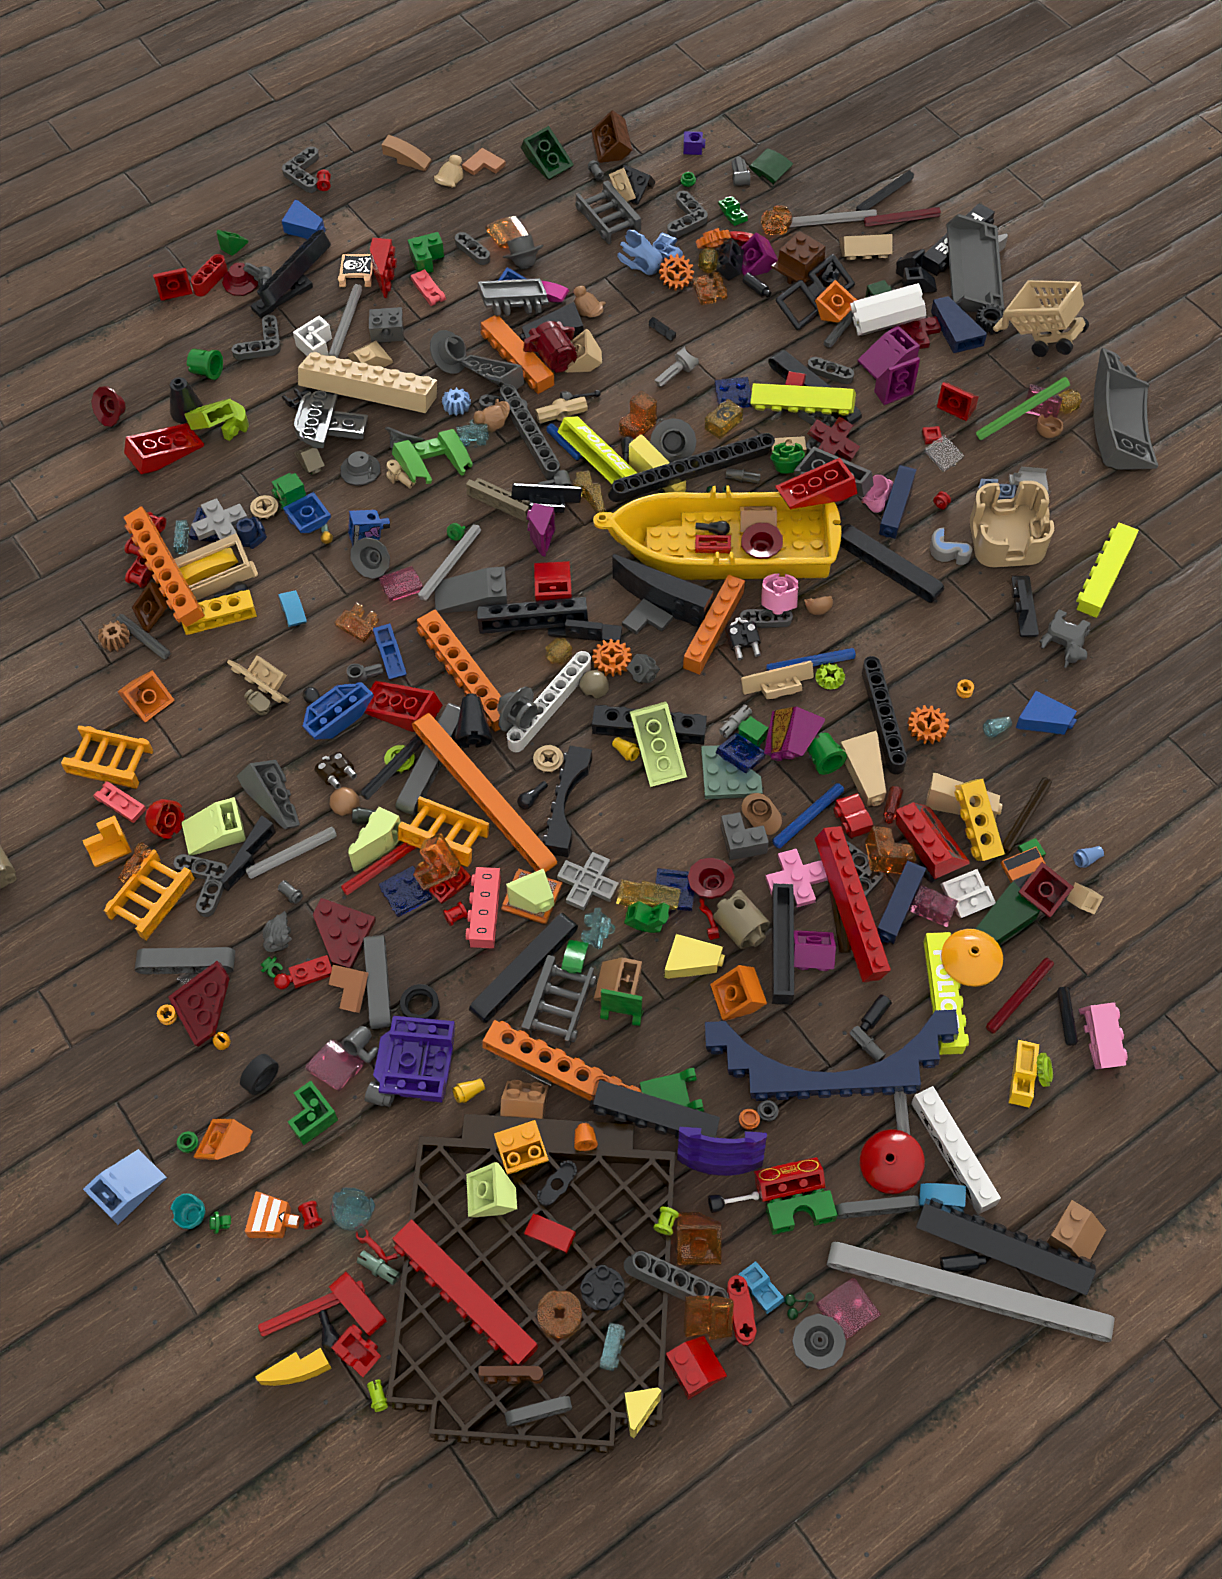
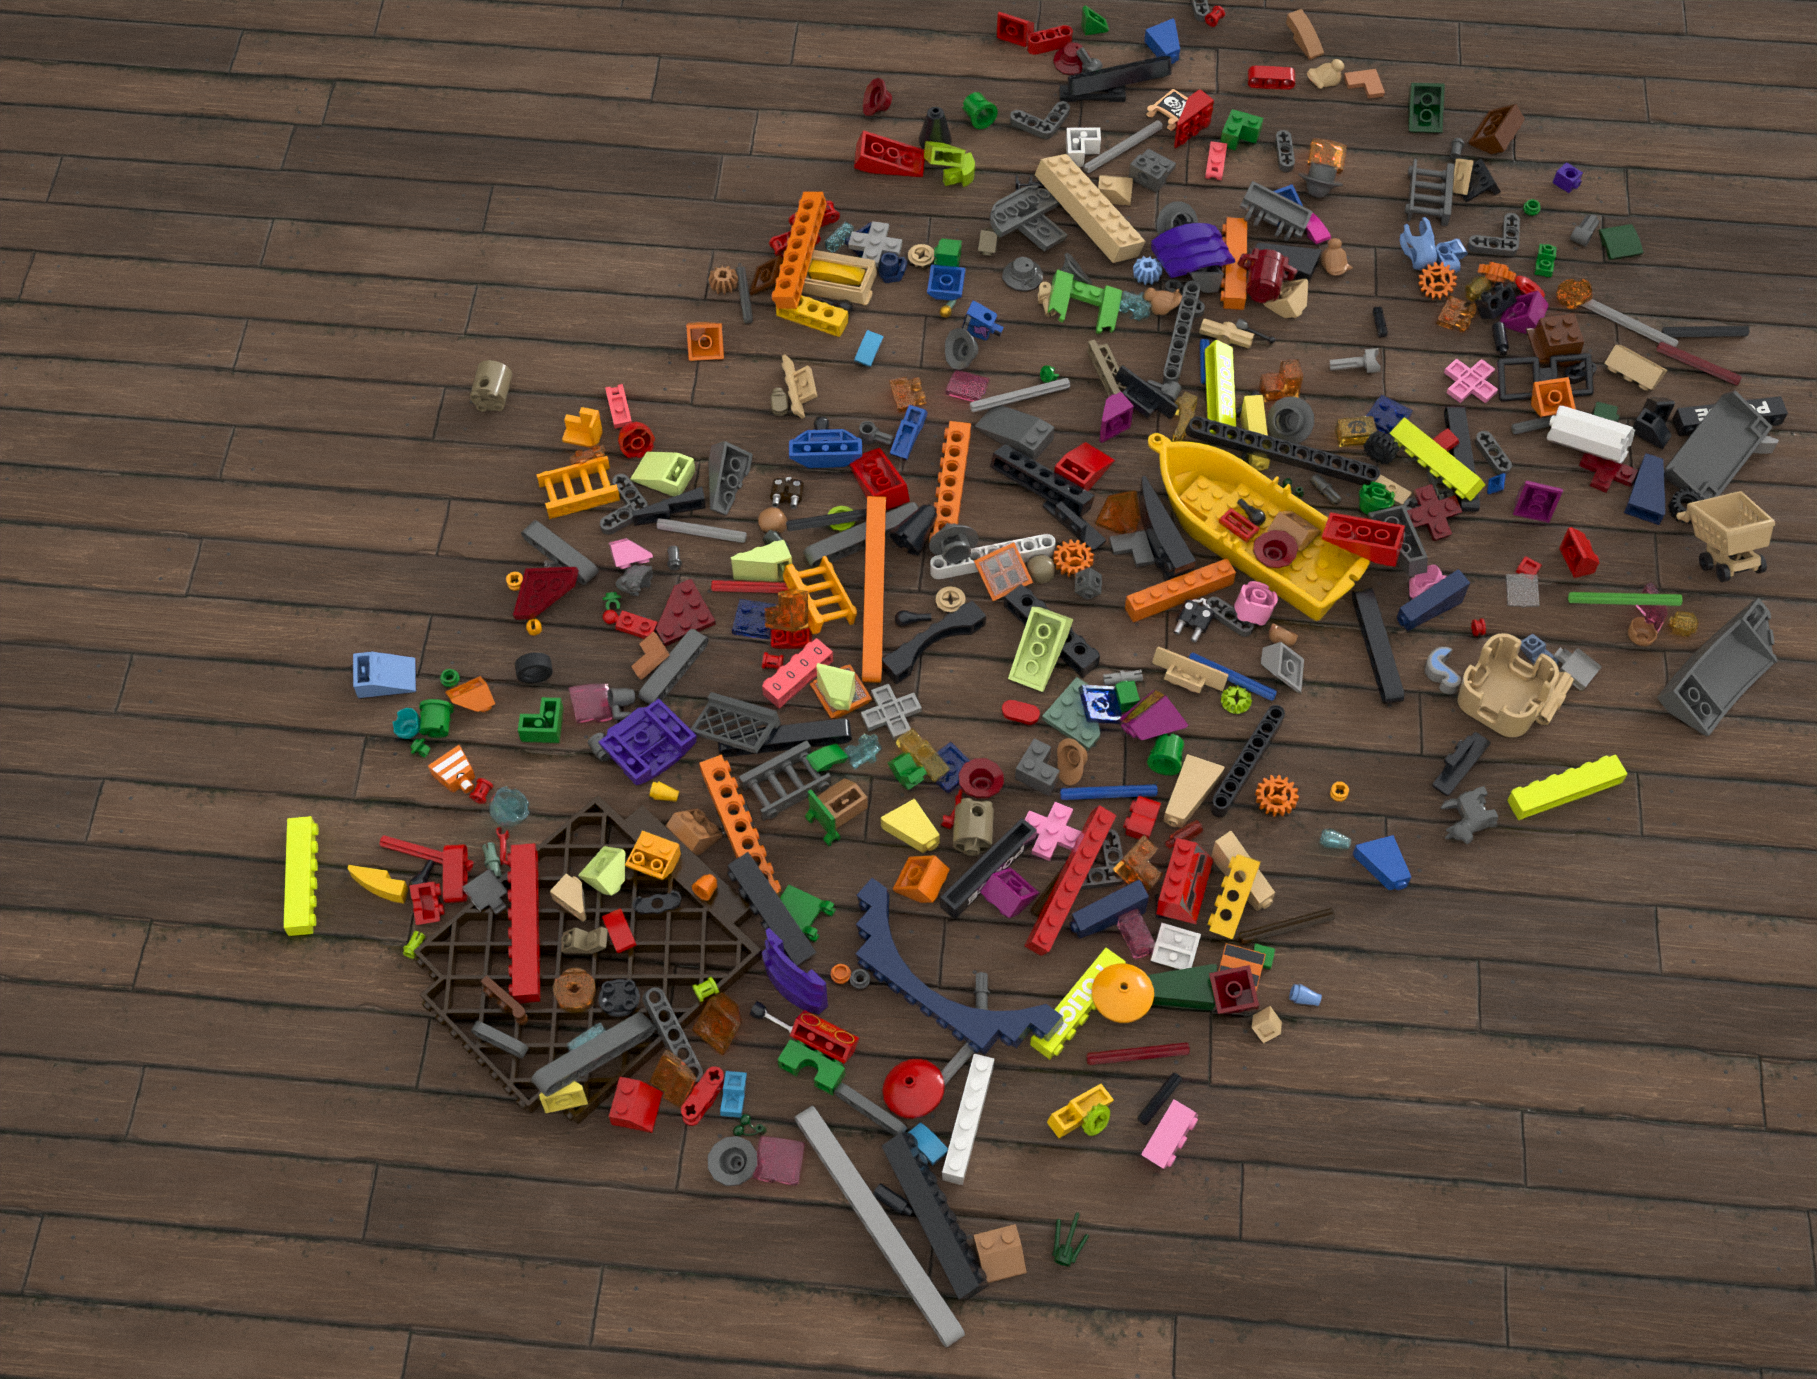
camera: 40 degrees right, 0 degrees up
(109, 773) = (630, 380): light orange fence -> none
(210, 1185) = (435, 717): none -> green piece
(216, 1424) = (299, 876): none -> neon yellow brick
(249, 917) = (626, 552): none -> bright pink slope
(402, 1295) = (486, 891): none -> dark grey piece
(410, 200) = (1271, 77): none -> red beam
(416, 990) = (687, 693): black tyre -> none
(476, 971) = (741, 711): none -> dark grey fence
(478, 363) = (1191, 248): none -> dark purple slope
(482, 1238) = (570, 895): none -> tan slope
(528, 1267) = (581, 941): none -> dark tan slope
(558, 651) = (1036, 523): clear yellow head -> none
(571, 706) = (1003, 571): none -> clear piece
(613, 598) = (1120, 513): none -> clear orange slope
(627, 749) = (1015, 635): yellow cone -> none
(639, 1354) = (593, 1054): none -> dark grey beam
(685, 805) = (1020, 712): none -> red tile
(755, 417) = (1381, 447): none -> black tyre
(766, 329) = (1470, 381): none -> bright pink plate
(839, 624) = (1284, 664): none -> light grey slope
(857, 387) = (1496, 484): none -> blue slope
(875, 1012) = (1010, 975): black cylinder -> none
(889, 351) = (1560, 471): magenta slope -> none
(1120, 1191) = (1064, 1255): none -> dark green plant

